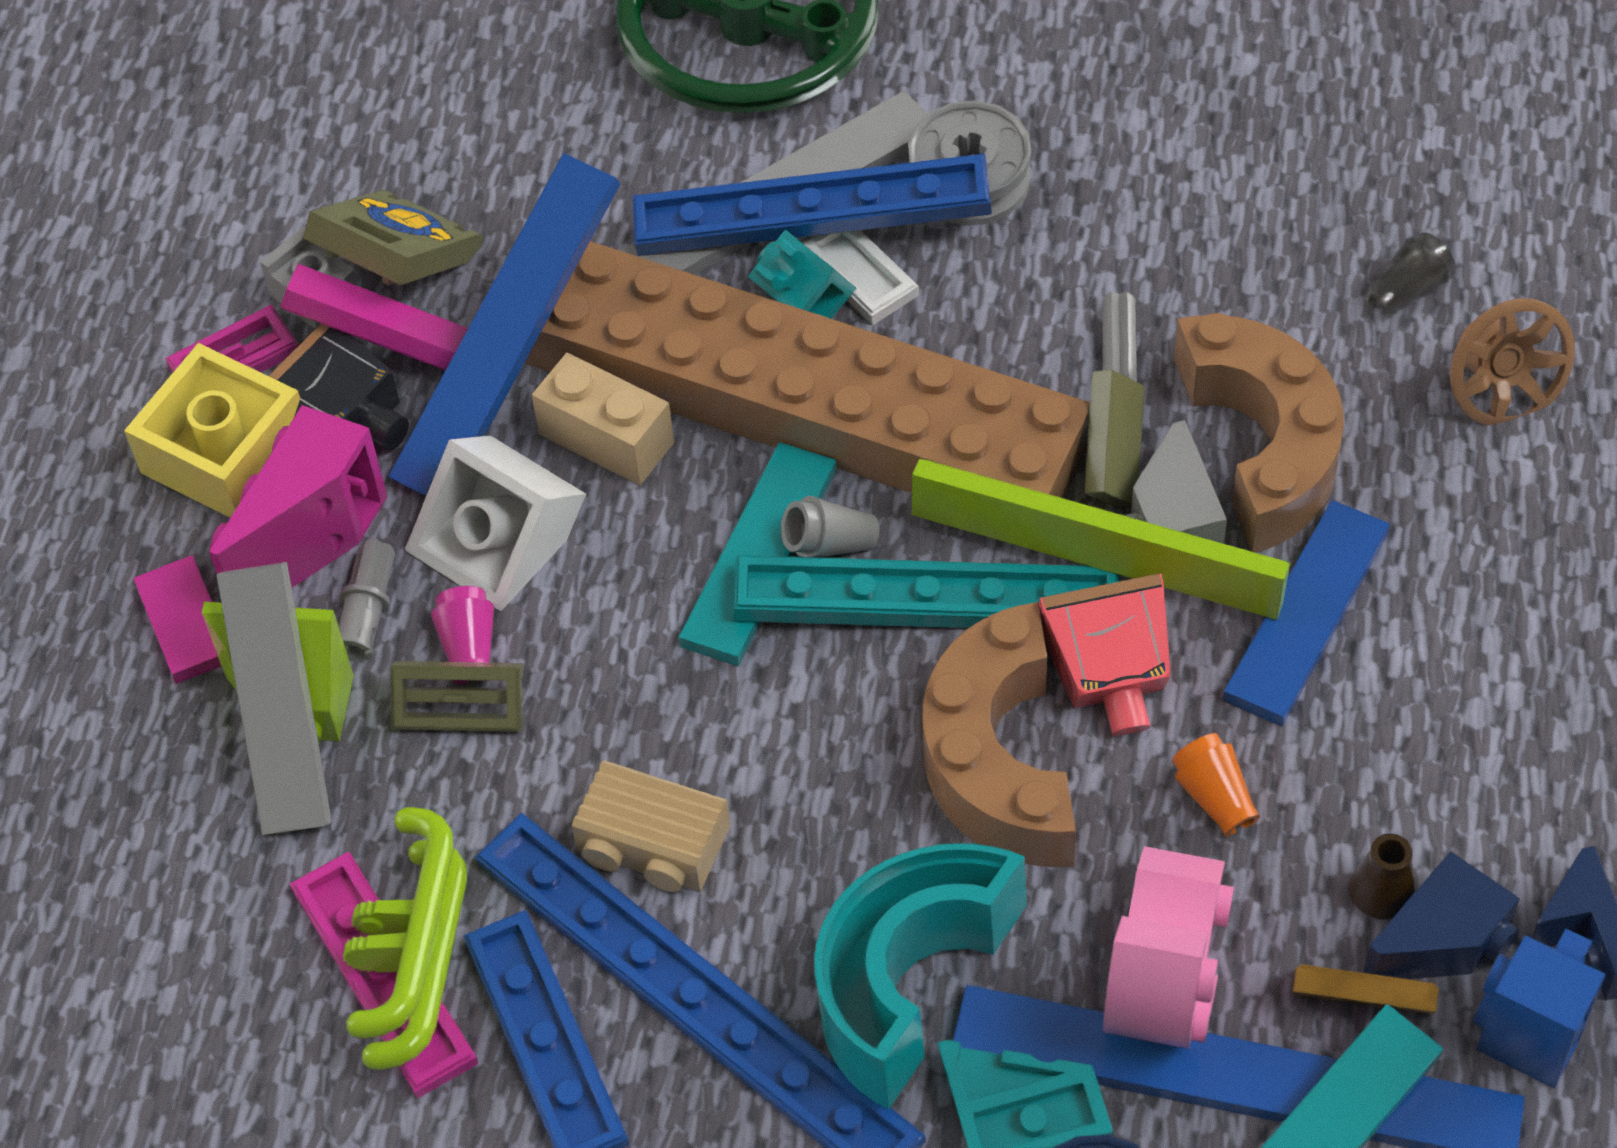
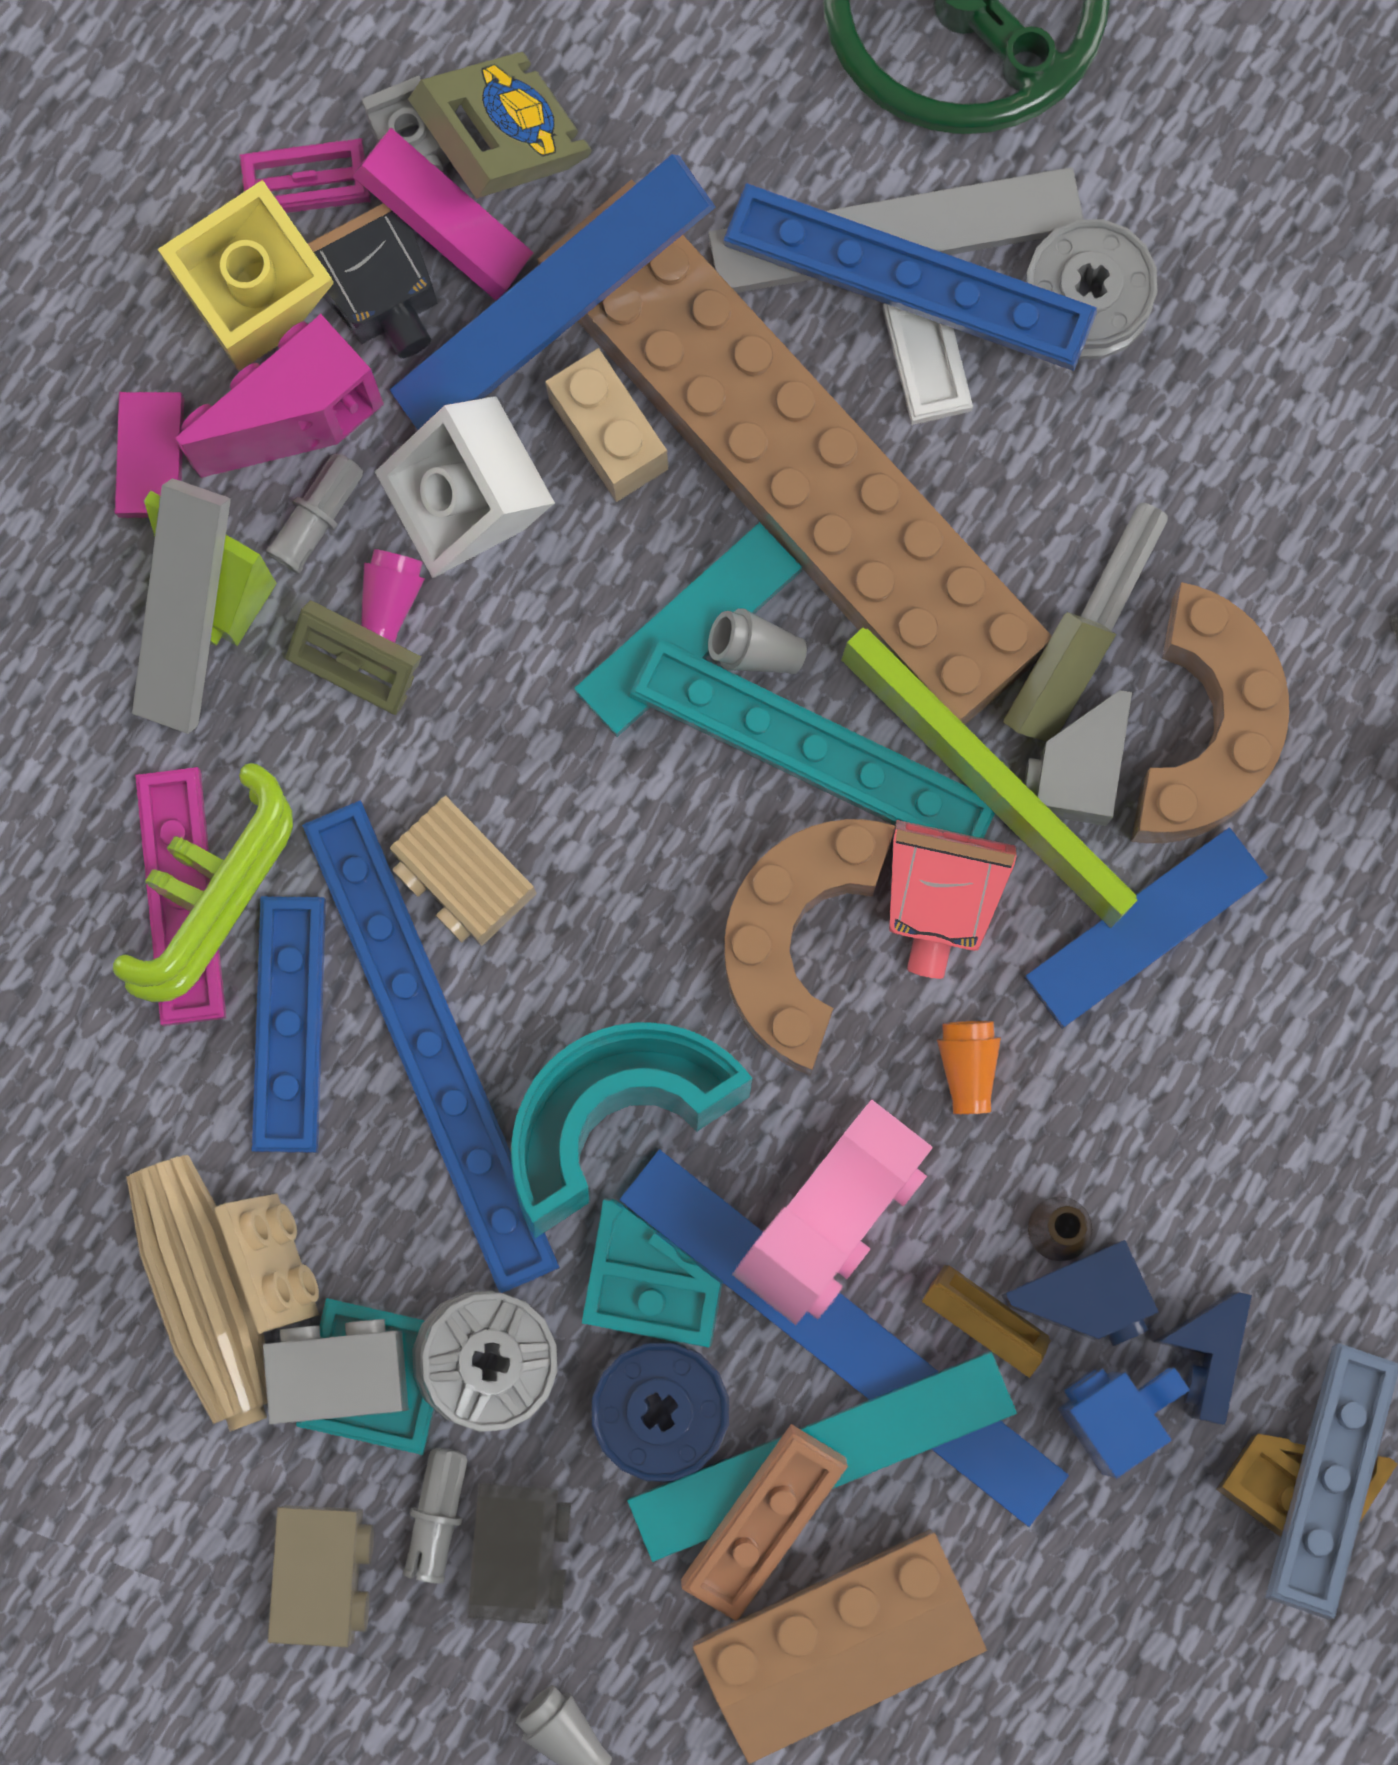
camera: 25 degrees right, 25 degrees up
(800, 277) = (859, 356): teal brick -> none

